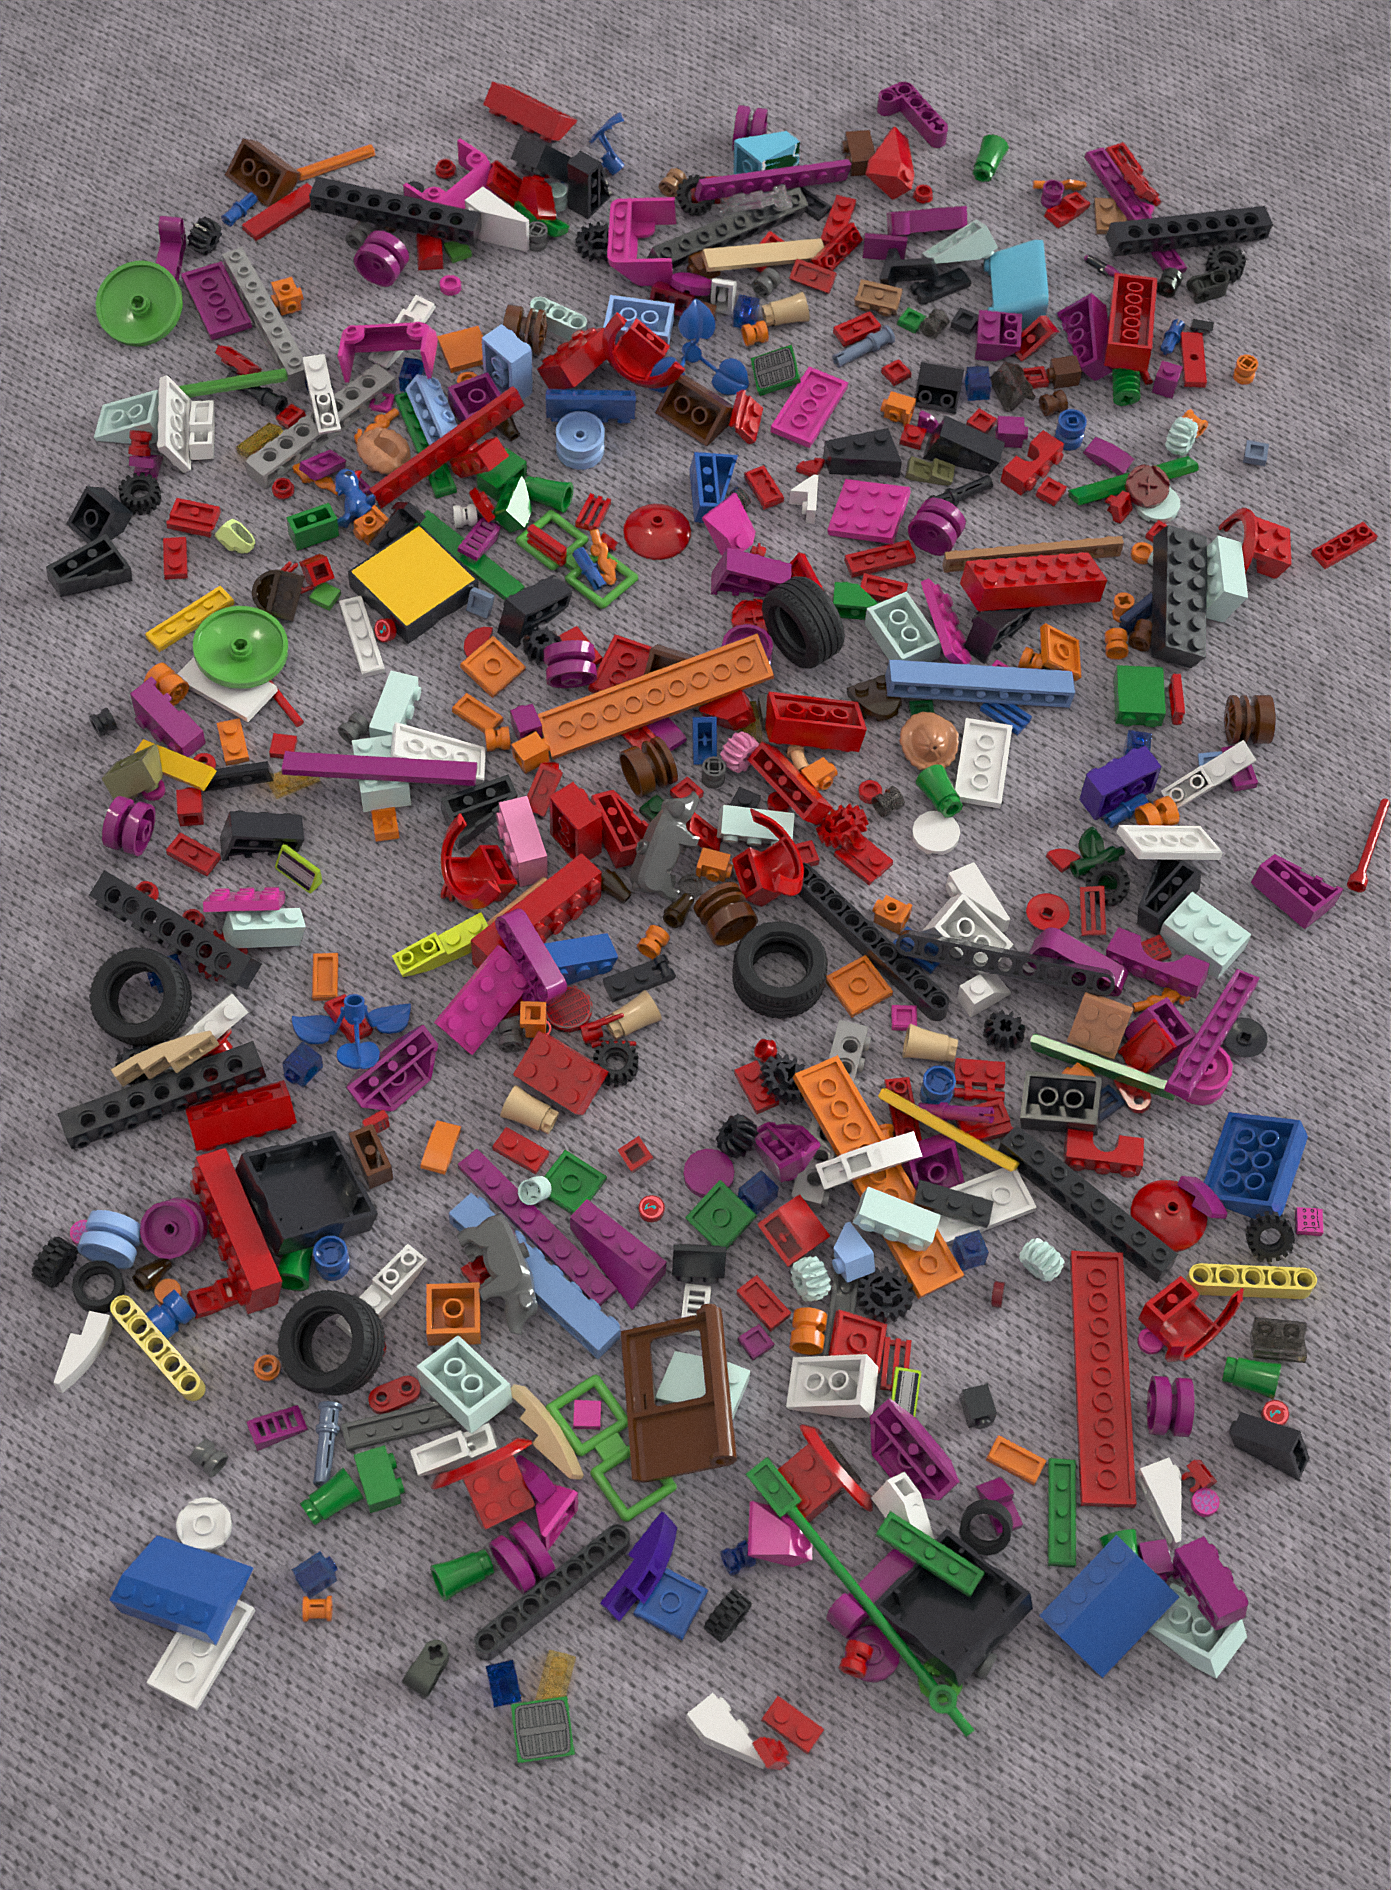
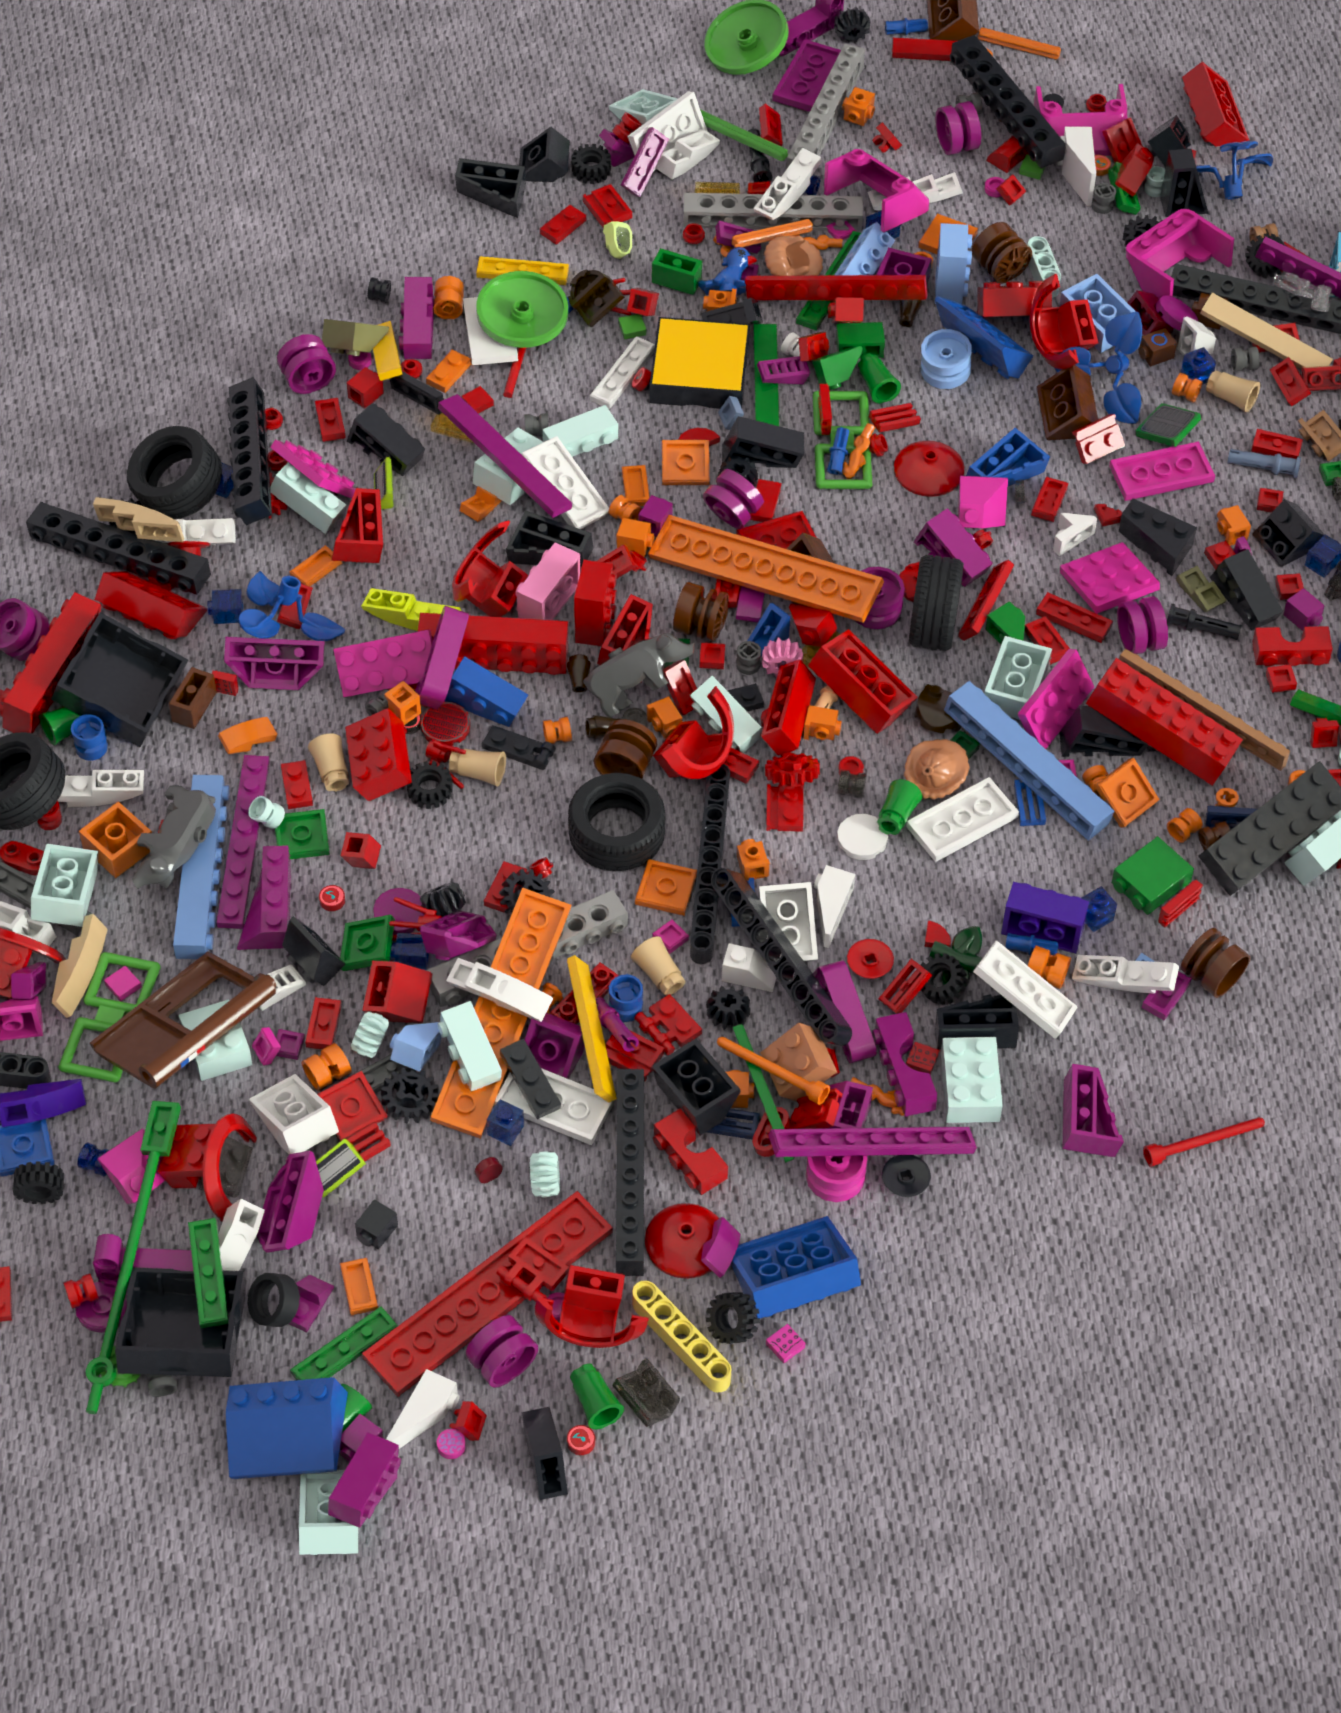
camera: 50 degrees right, 5 degrees down
(186, 459) = (644, 162): none -> tile
(331, 916) = (361, 530): none -> red wedge
(333, 304) = (887, 138): none -> red tile
(346, 442) = (771, 233): none -> orange axle
(466, 278) = (1011, 189): none -> red tile
(748, 1357) = (266, 1046): none -> dark pink tile
(753, 1163) = (430, 915): none -> red plant
(1119, 1324) = (536, 1263): none -> red plate
(1146, 1032) = (816, 1091): none -> orange piece

